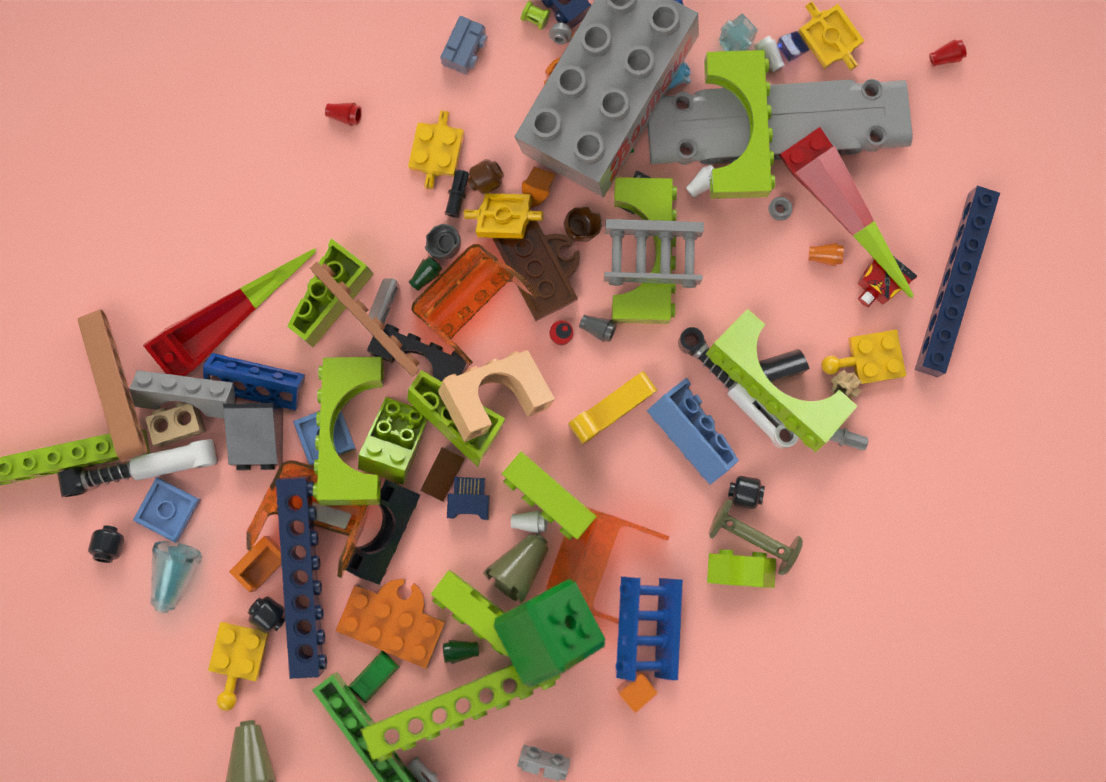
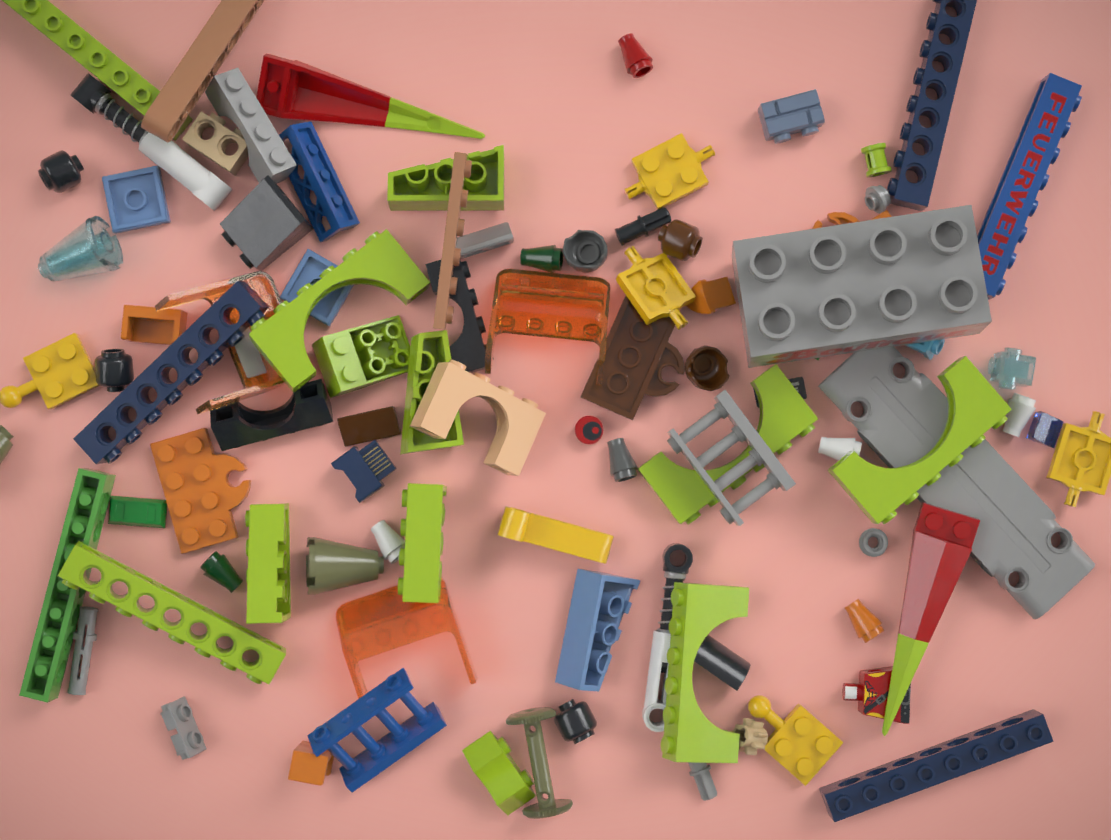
camera: 50 degrees right, 5 degrees up
(549, 633) = (297, 644): green plate -> none

